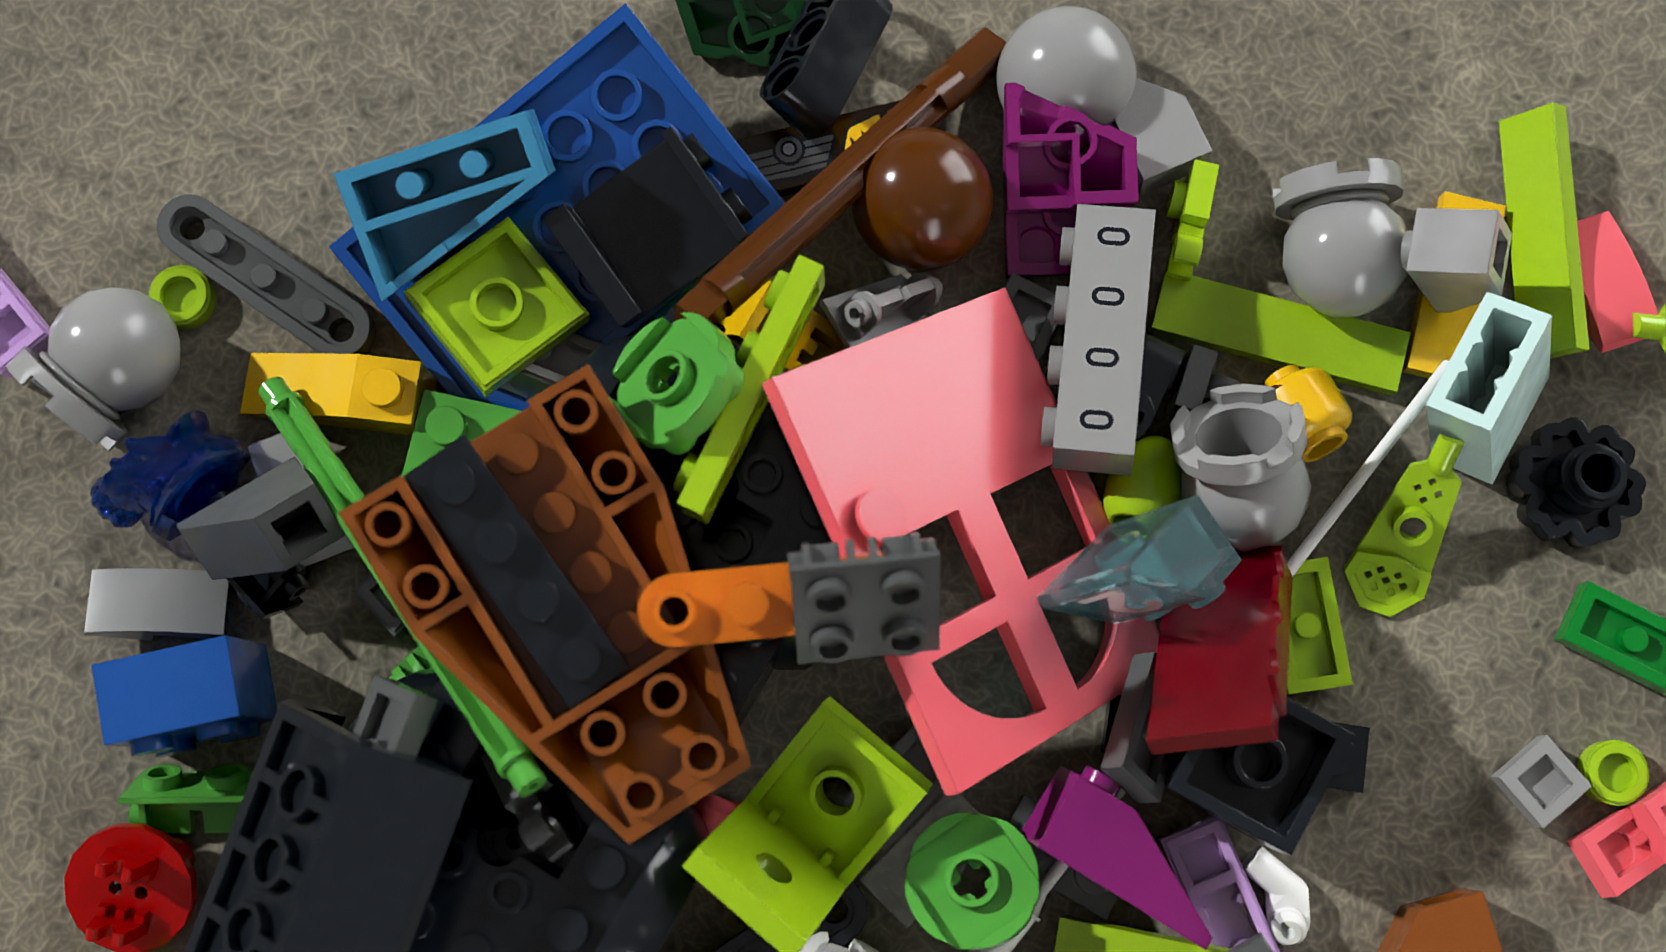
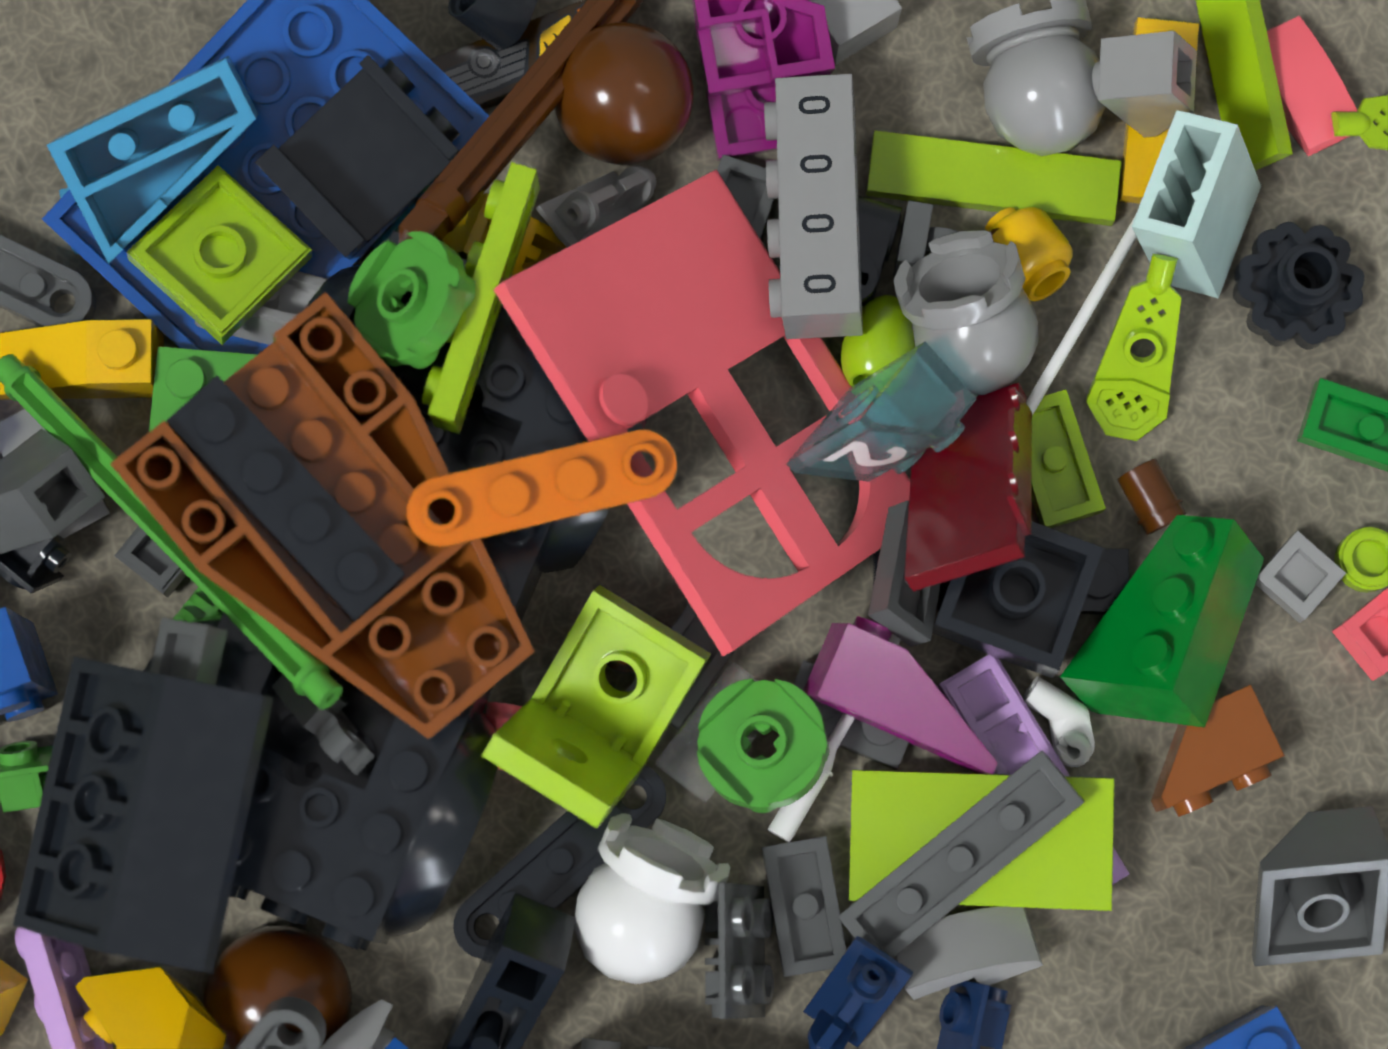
camera: 15 degrees left, 0 degrees up
(865, 603) = (621, 477): dark grey hinge -> none
(1191, 208) = (888, 65): lime plate -> none
(1400, 677) = (1151, 496): none -> reddish brown piece
(1407, 818) = (1171, 626): none -> green wedge

